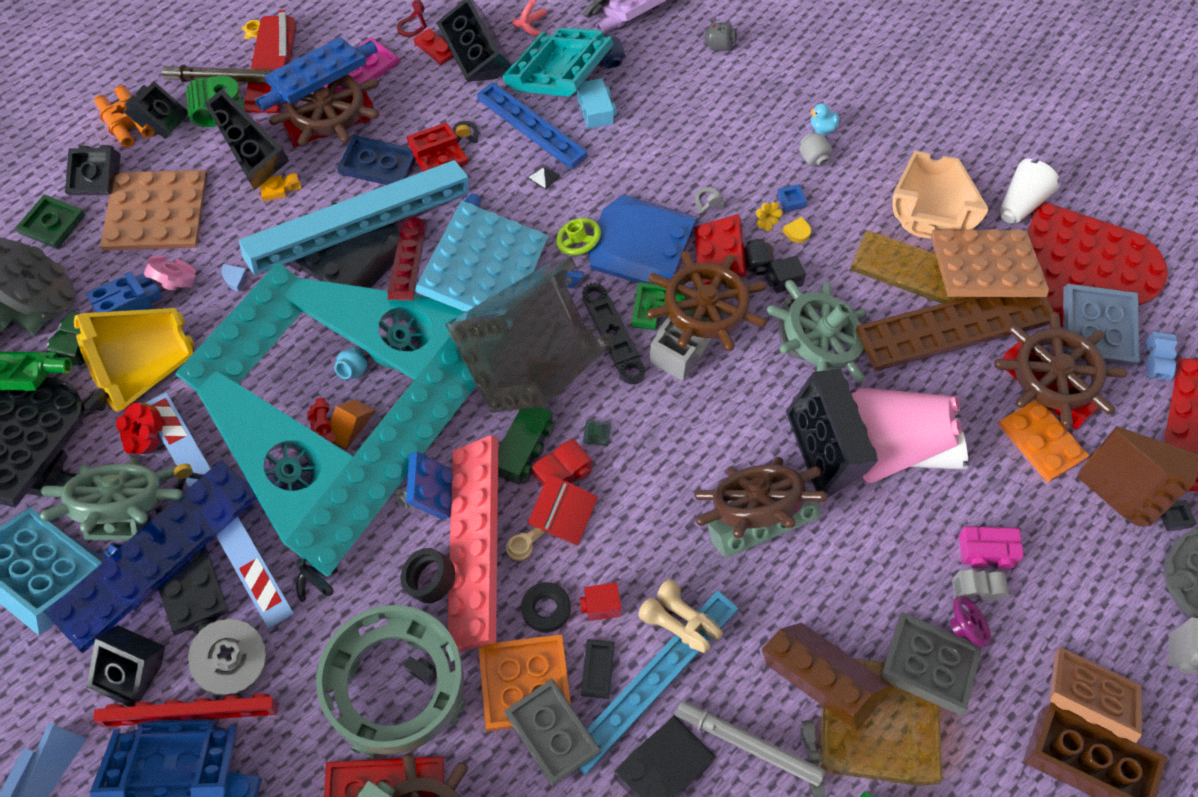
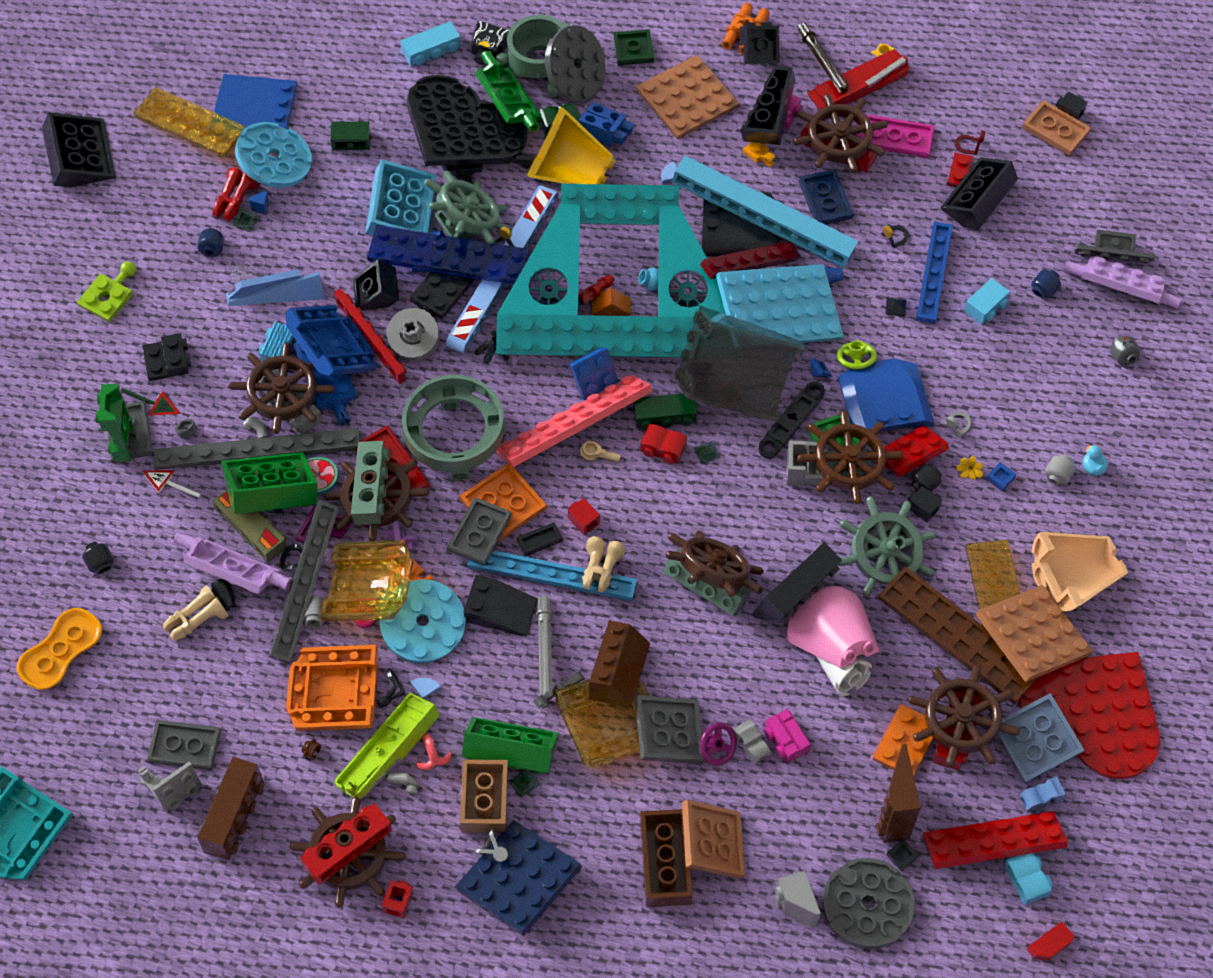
camera: 60 degrees right, 0 degrees up
(91, 170) = (687, 41): black plate -> none
(138, 438) = (524, 193): red plate -> none
(170, 273) = (643, 137): bright pink plate -> none
(201, 91) = (803, 65): green piece -> none
(314, 71) = (856, 110): blue plate -> none
(413, 568) = (535, 416): black tyre -> none
(420, 669) = (472, 437): black plate -> none
(436, 147) = (863, 225): red slope -> none
(527, 19) = (1028, 211): coral piece -> none
(541, 591) = (560, 476): black tyre -> none
(558, 61) = (1004, 254): teal wedge -> none
(562, 510) = (631, 459): red slope -> none
(797, 230) = (974, 495): yellow tile -> none
(1028, 190) = (1131, 636): white cone -> none

